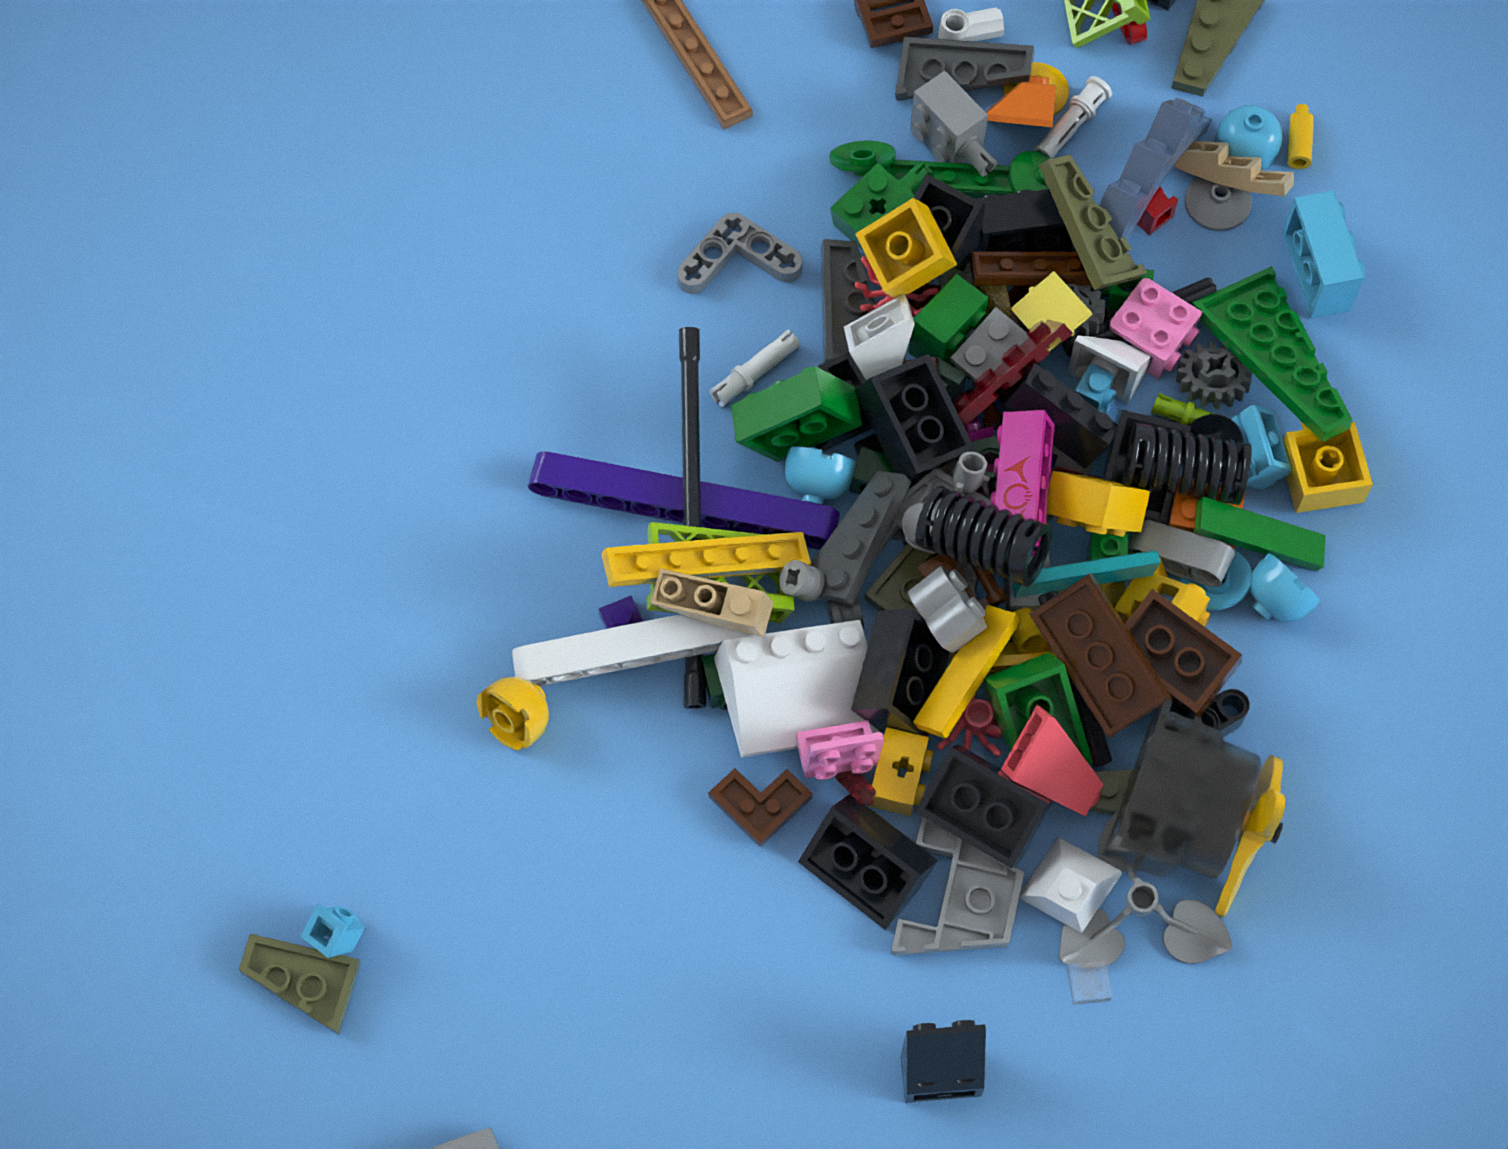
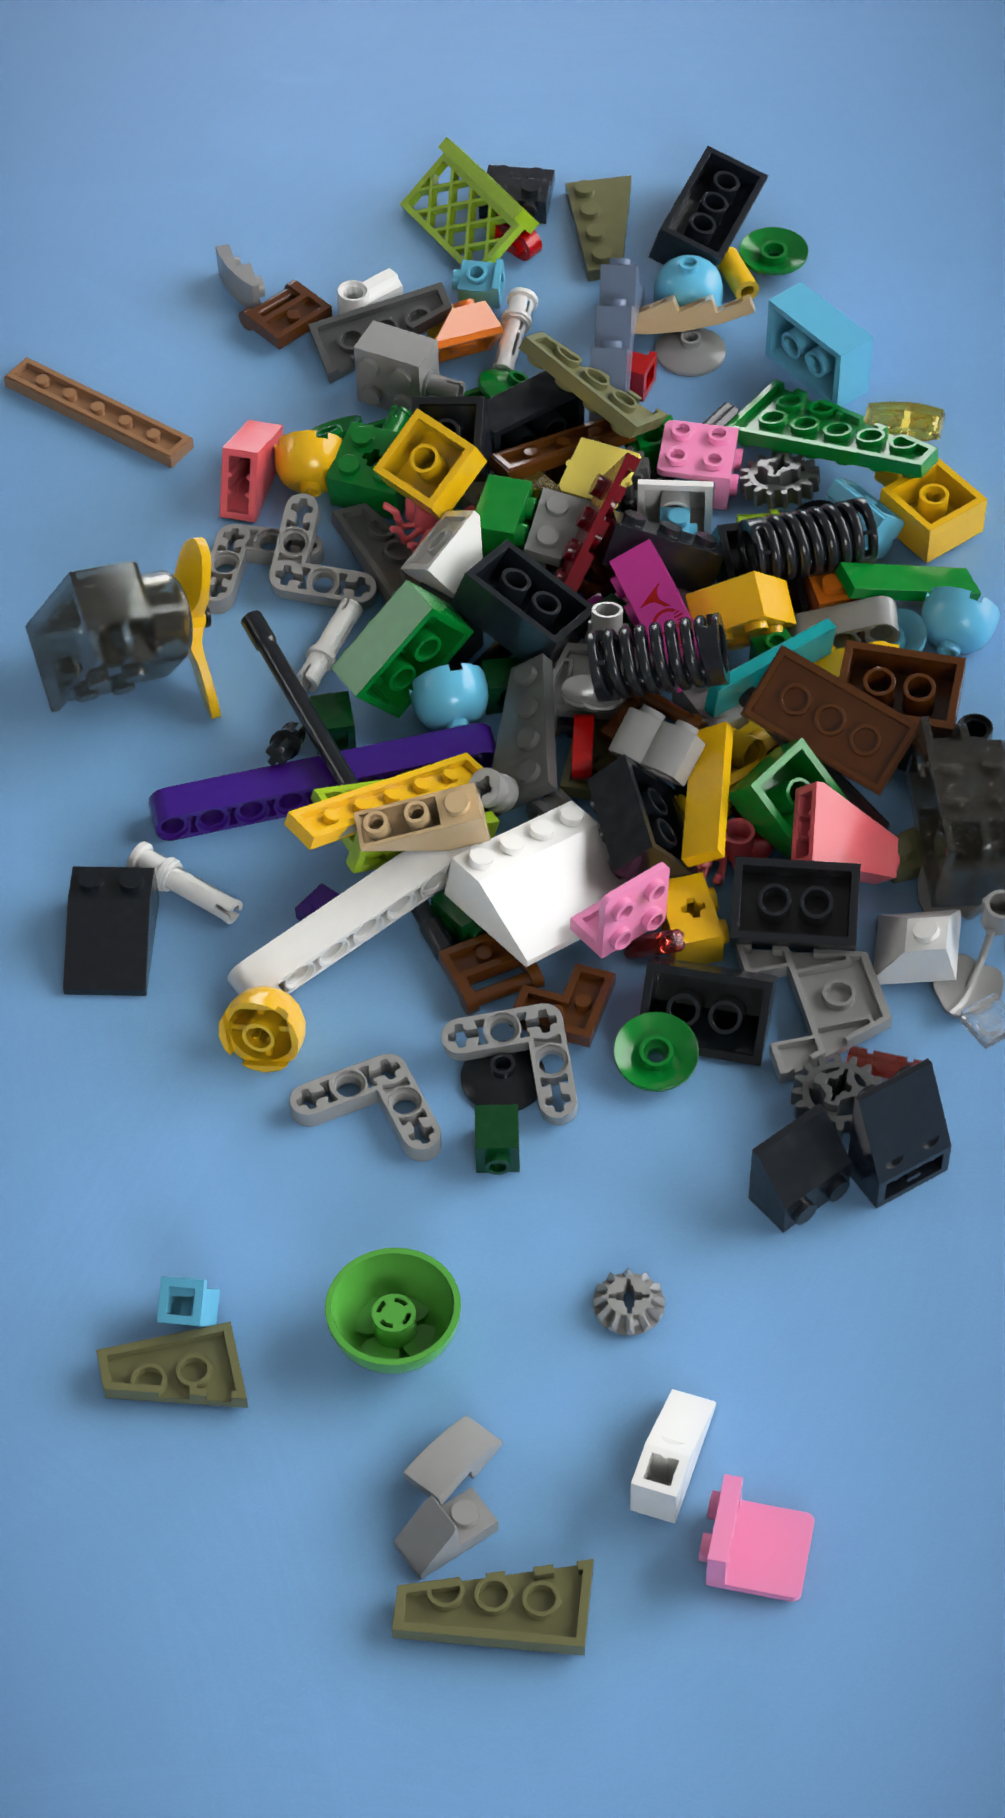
camera: 25 degrees left, 15 degrees down
(446, 563) = (110, 930): none -> black slope
(477, 996) = (393, 1310): none -> bright green piece
(518, 532) = (172, 877): none -> white pin
(582, 813) = (384, 1091): none -> light grey beam
(588, 299) = (124, 628): none -> clear smoke brick
(640, 898) = (497, 1139): none -> dark green brick
(664, 455) = (285, 743): none -> black axle
(672, 1106) = (612, 1311): none -> light grey gear
(684, 855) = (489, 1086): none -> black dish
(711, 727) = (478, 961): none -> reddish brown plate
(714, 832) = (538, 1043): none -> light grey beam
(718, 447) = (337, 716): none -> dark green brick
(770, 279) = (299, 563): none -> light grey beam
(779, 164) = (248, 470): none -> coral slope
(793, 865) = (656, 1034): none -> green dish
(825, 181) = (305, 460): none -> yellow cylinder
(854, 1049) = (799, 1169): none -> black slope
(897, 572) = (583, 746): none -> red beam
(915, 980) = (833, 1087): none -> dark grey gear
(985, 982) = (882, 1063): none -> clear red axle
(1075, 64) = (480, 281): none -> medium azure brick
(1308, 67) = (709, 209): none -> black slope
(1348, 121) = (773, 251): none -> green dish
(1363, 361) = (908, 418): none -> clear yellow slope

